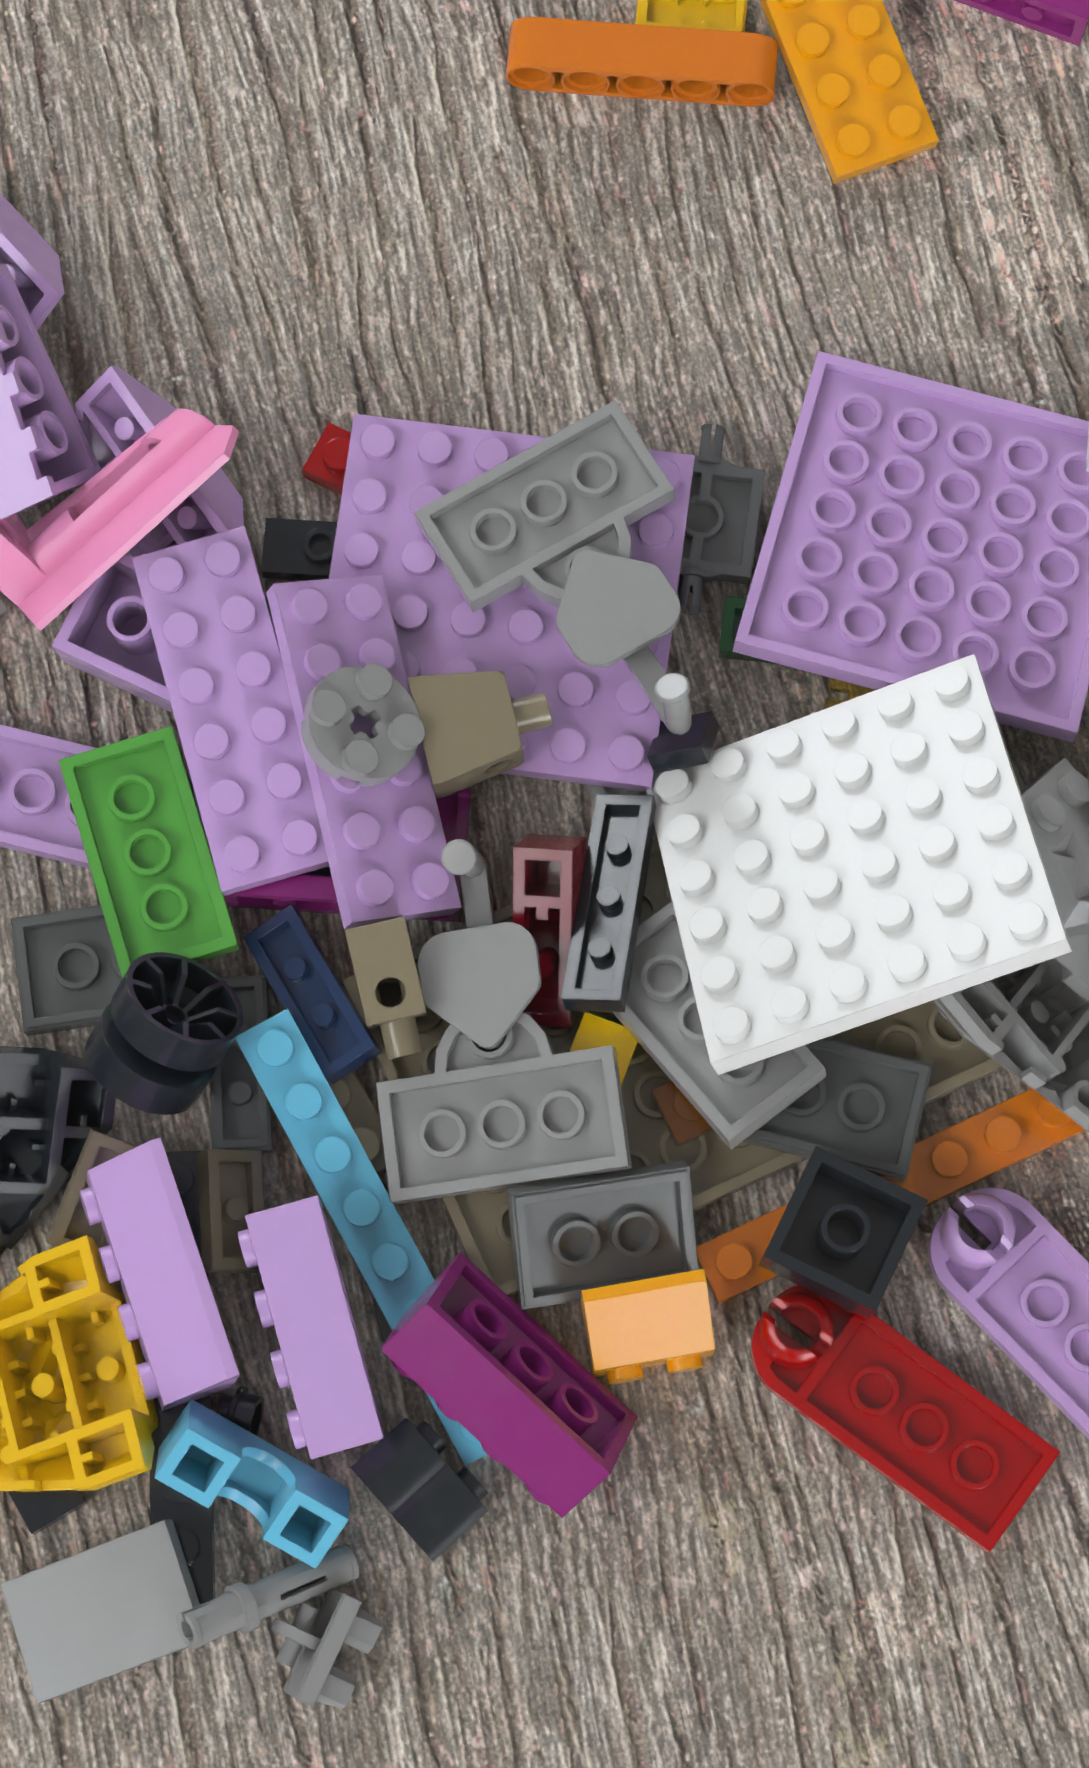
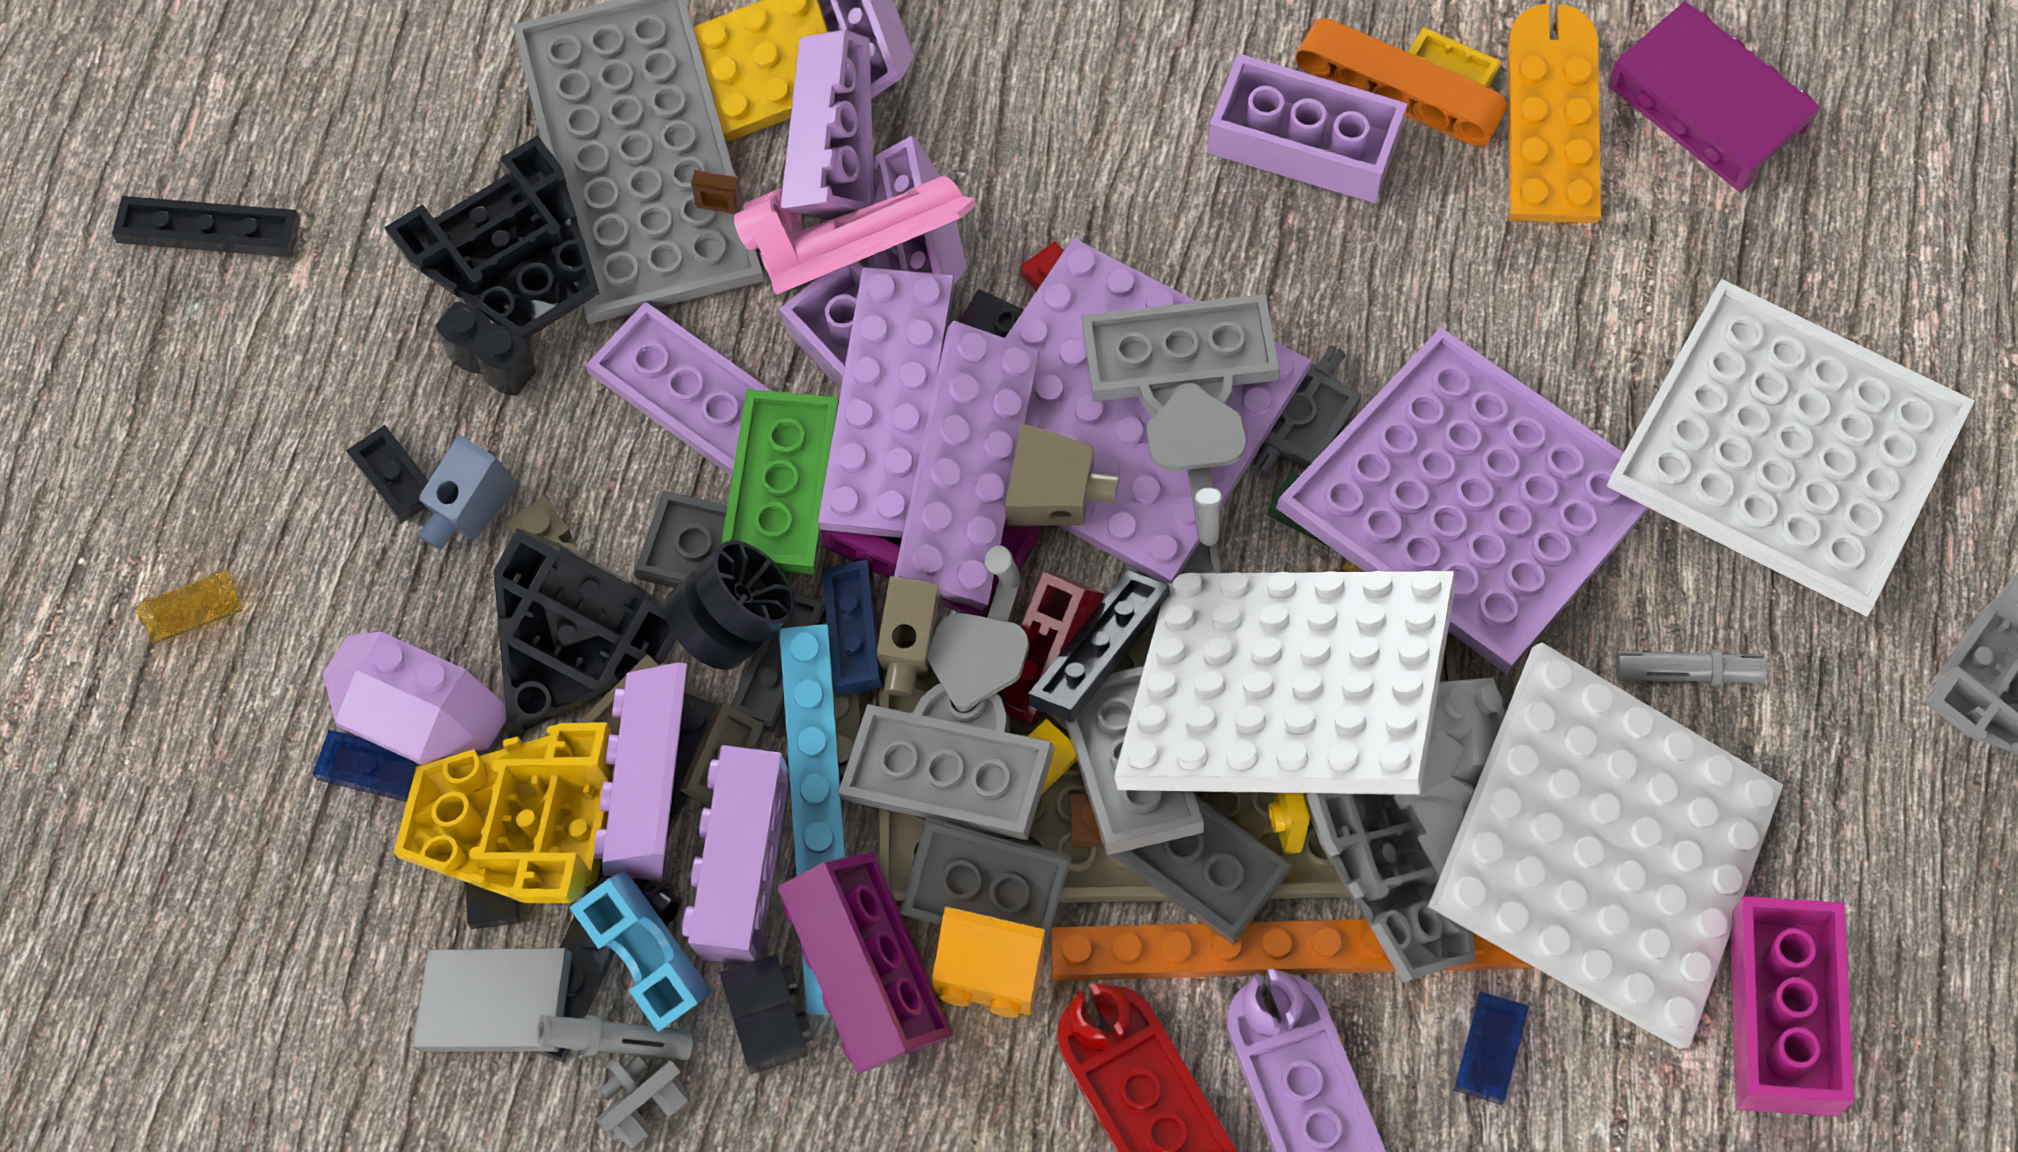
camera: 25 degrees right, 10 degrees down
(379, 698) = (992, 427): light grey plate -> none
(563, 165) = (1306, 128): none -> lavender brick
(680, 751) = (1209, 560): black tile -> none
(843, 1233) = (1164, 953): black brick -> none
(917, 1025) = (1290, 819): none -> yellow plate

